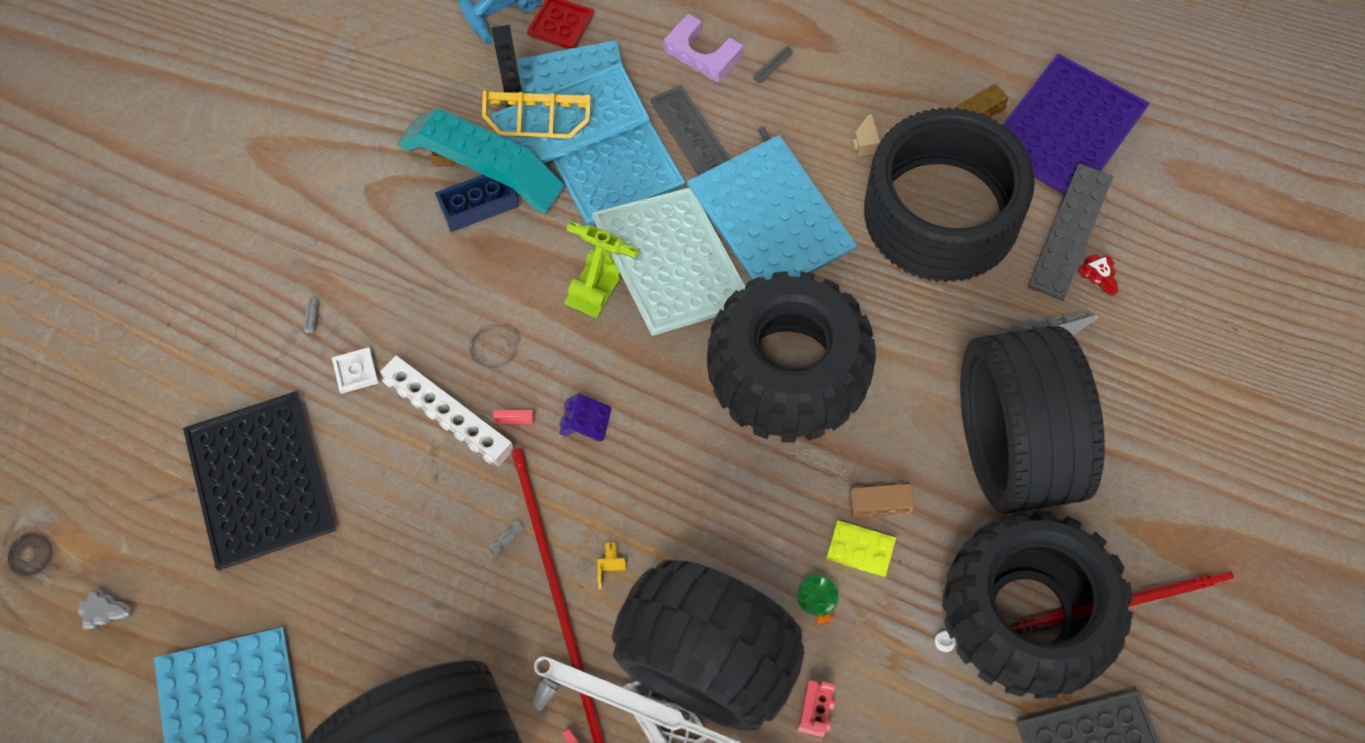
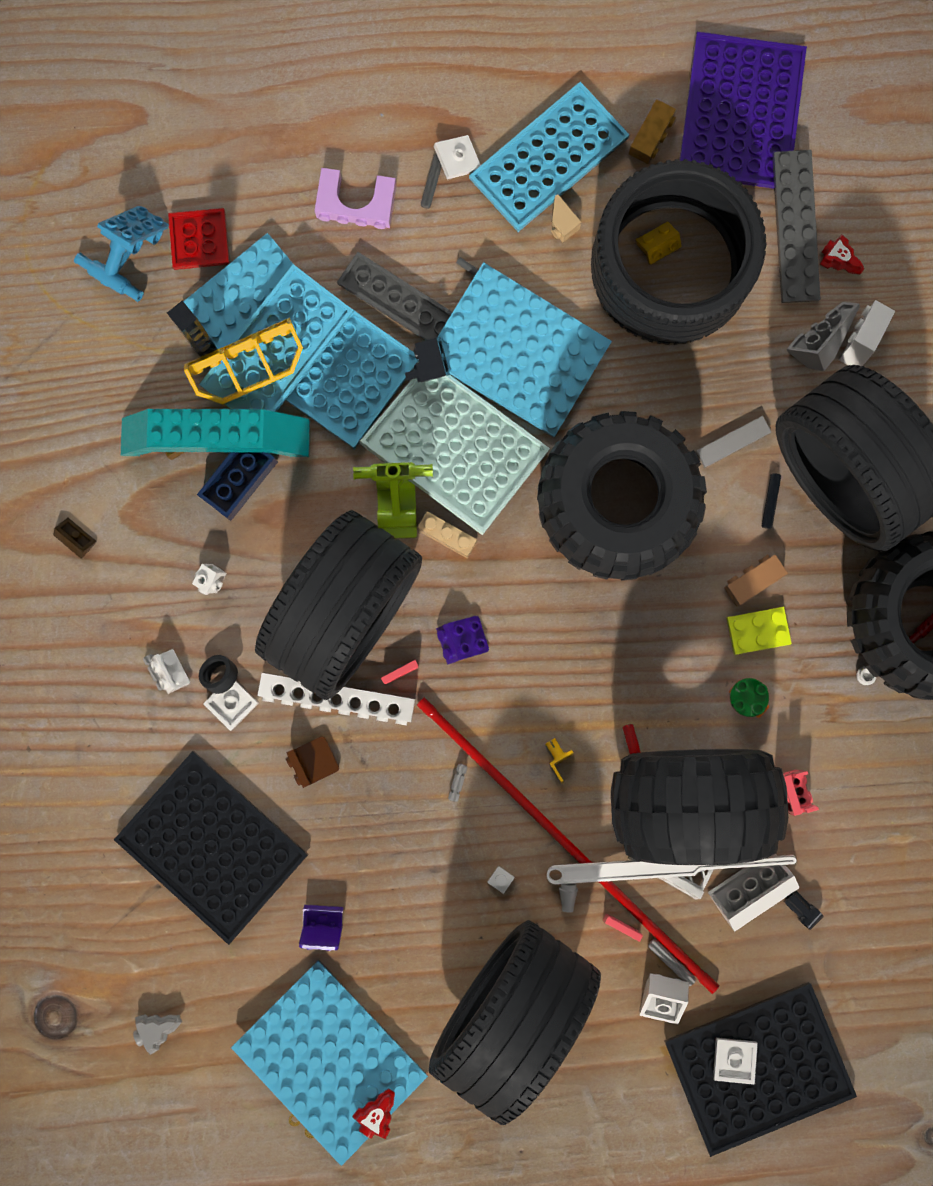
camera: 30 degrees left, 20 degrees up
(306, 595) = (321, 927): none -> dark purple bracket
(318, 184) = (74, 537): none -> dark brown slope
(323, 319) = (170, 671): none -> white bracket
(359, 339) = (210, 666): none -> black tyre
(389, 452) = (312, 762): none -> reddish brown bracket
(402, 263) = (209, 579): none -> white brick
(488, 310) = (337, 604): none -> black tyre
(491, 645) = (500, 879): none -> white plate
(623, 326) = (447, 534): none -> tan brick
(689, 184) = (431, 361): none -> black hinge
(804, 55) = (457, 156): none -> white plate
(881, 65) = (537, 131): none -> medium azure piece
(922, 376) = (733, 442): none -> light grey tile
(932, 442) = (771, 501): none -> black axle
(941, 191) = (659, 242): none -> yellow bracket
(1101, 339) = (867, 334): none -> white wedge

